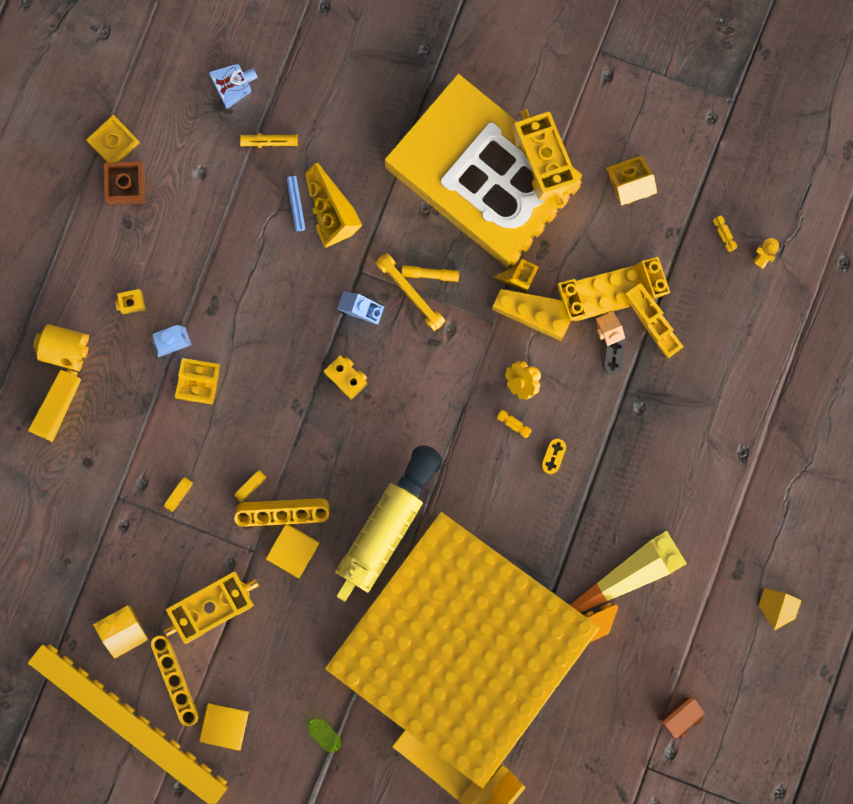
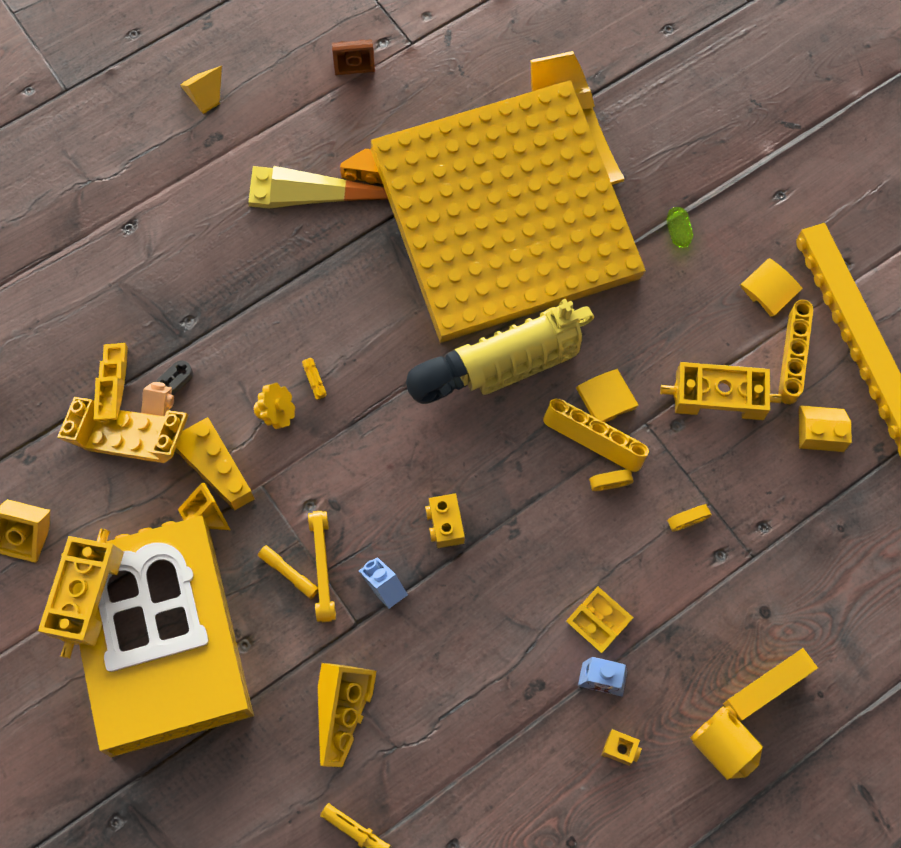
camera: 145 degrees left, 15 degrees down
(295, 203) = (374, 739): light blue axle -> none
(549, 454) = (299, 327): yellow beam -> none

